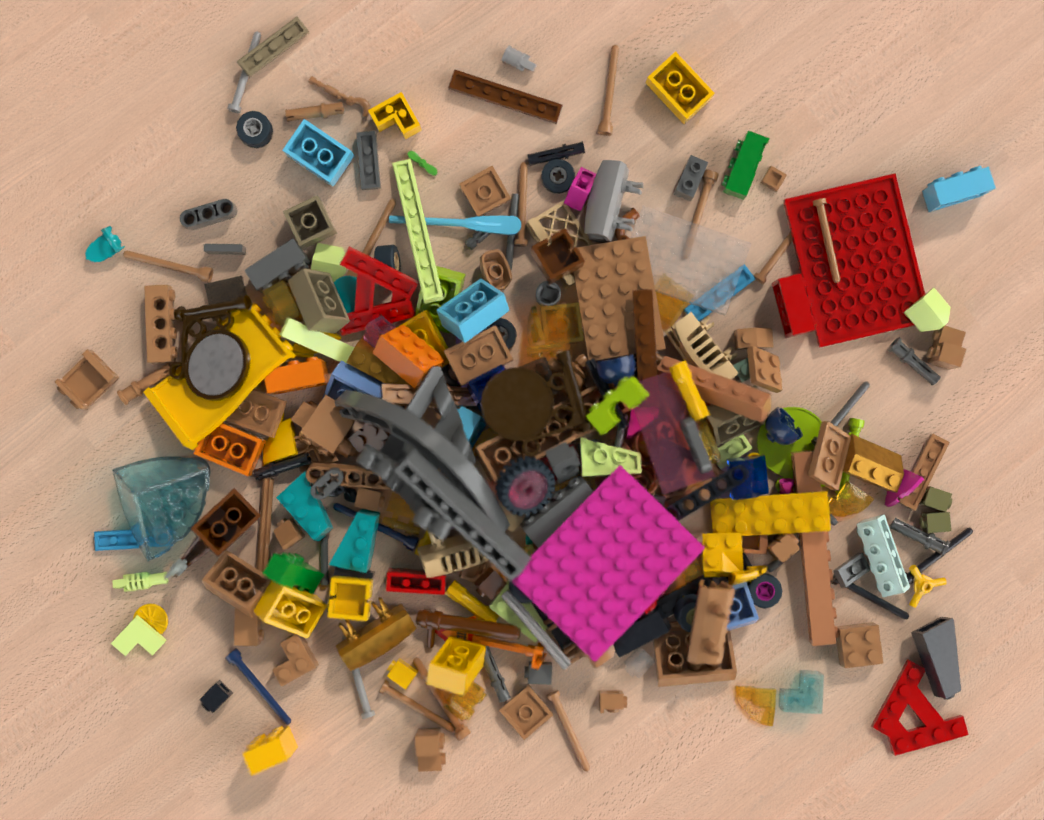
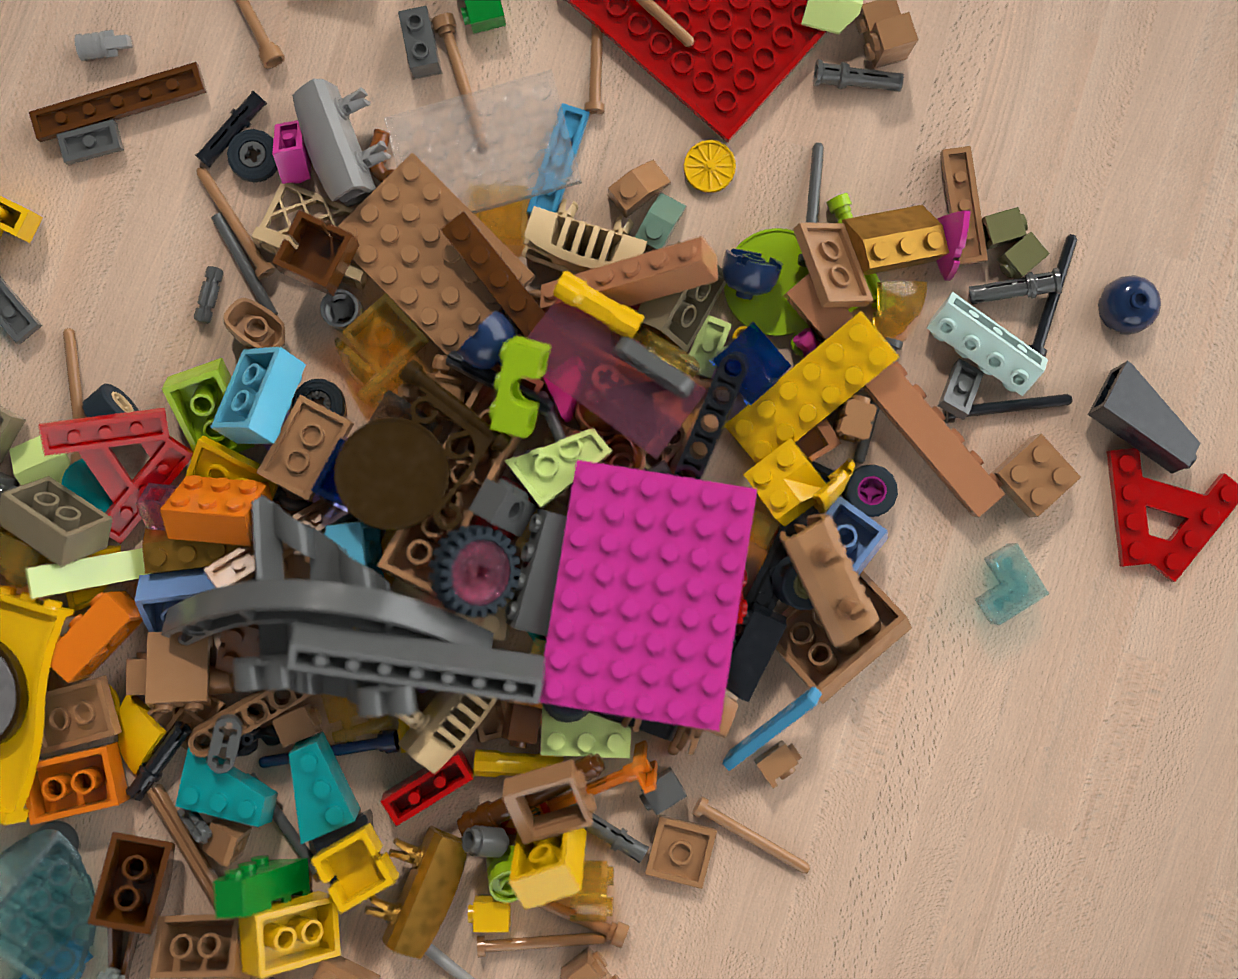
camera: 35 degrees left, 0 degrees up
(279, 514) = (195, 825): none -> dark grey axle
(417, 231) = (121, 346): yellowish green tile -> none
(422, 163) = (72, 257): bright green piece -> none
(423, 656) = (499, 875): none -> lime wheel
(427, 633) = (485, 841): none -> dark grey brick
(472, 648) = (553, 823): none -> medium nougat window
(475, 108) = (90, 142): none -> dark grey plate
(485, 191) = (175, 238): medium nougat plate -> none
(490, 224) = (208, 274): medium azure piece -> none
(536, 629) = (618, 741): light grey axle -> none
(622, 680) = (772, 728): none -> dark azure tile
(638, 662) = (777, 690): clear brick -> none
(757, 703) = (960, 636): clear yellow brick -> none
(764, 369) = (677, 215): medium nougat plate -> none
(794, 305) = (658, 109): red brick -> none
(800, 353) = (709, 166): none -> yellow wheel
(923, 585) = (1061, 345): yellow piece -> none
(975, 588) = (1129, 304): none -> dark blue cylinder

